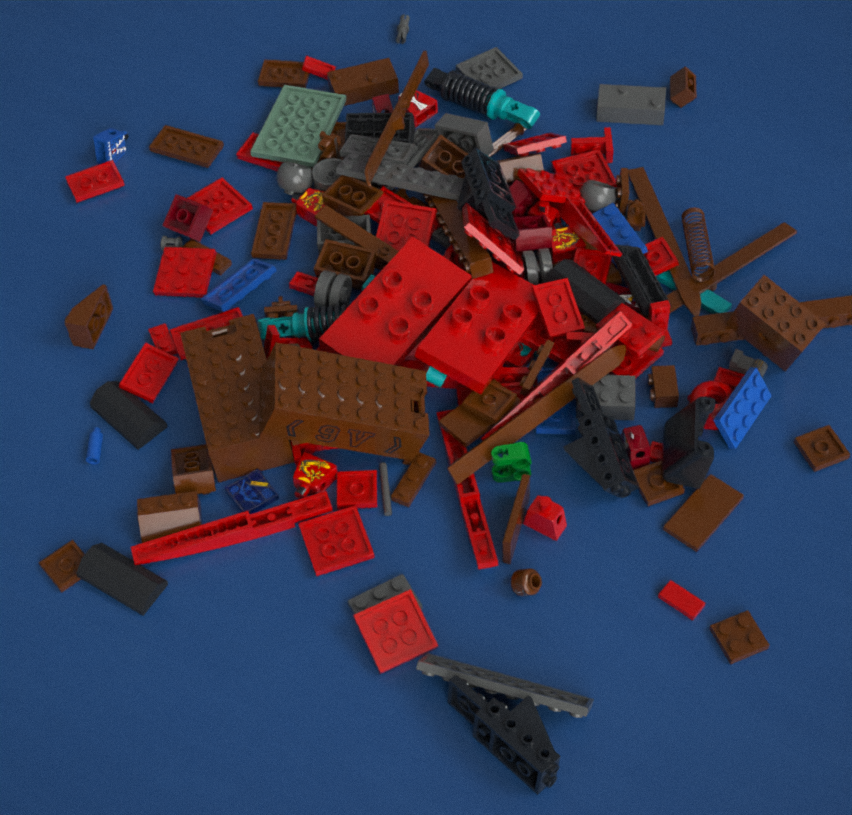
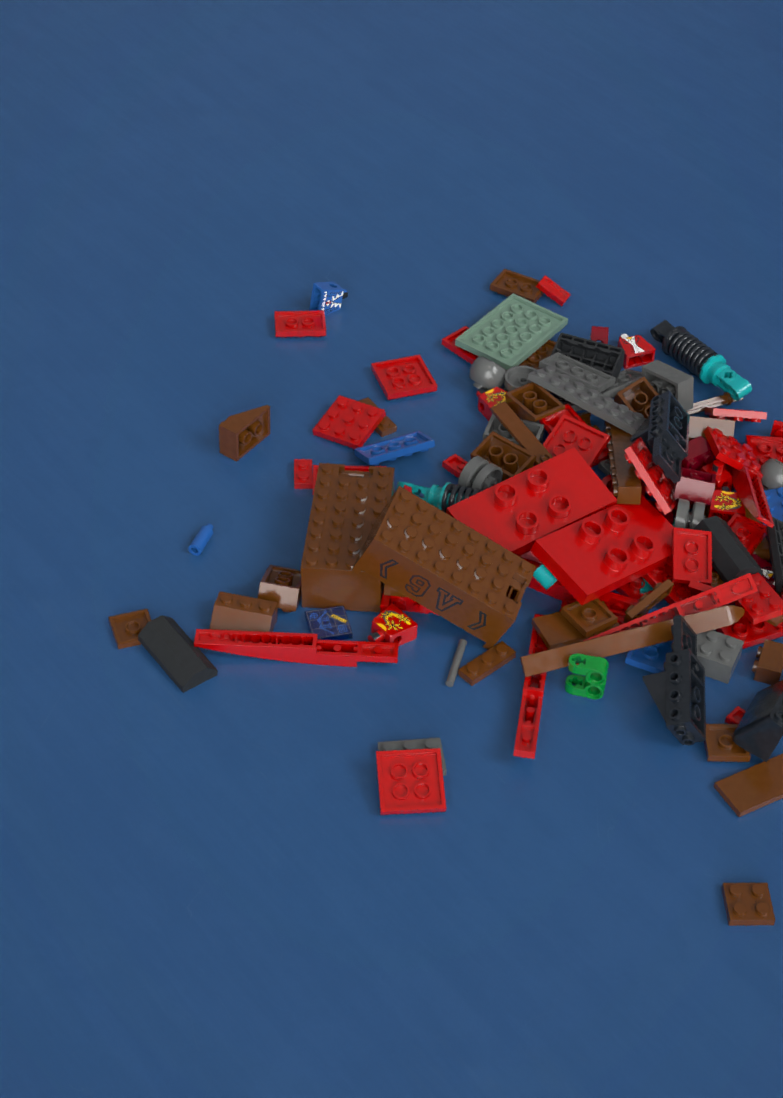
camera: 15 degrees right, 10 degrees down
(127, 414) = (243, 522): black piece -> none
(148, 373) = (278, 494): red plate -> none
(165, 242) = (343, 392): dark grey bush -> none
(186, 146) = (398, 320): reddish brown plate -> none
(187, 217) = (371, 376): dark red brick -> none
(274, 231) = (448, 414): reddish brown plate -> none
(280, 309) = (424, 479): reddish brown hips -> none
(329, 145) = (532, 354): reddish brown hips -> none
(336, 540) = (389, 689): red plate -> none
(357, 489) = (428, 653): red plate -> none
(364, 81) = (592, 311): reddish brown brick -> none
(396, 120) = (605, 347): reddish brown piece -> none
(403, 29) = (651, 281): dark grey pin -> none
(491, 68) = (723, 339): dark grey plate -> none
(509, 685) = (499, 865): dark grey plate -> none
(515, 735) = (480, 903): black wedge -> none
(516, 519) = (570, 725): reddish brown tile -> none
(526, 582) = (555, 782): reddish brown head -> none
(546, 517) = (600, 734): red torso -> none
(634, 442) = (717, 695): dark red torso -> none
(681, 600) = (704, 852): red tile -> none

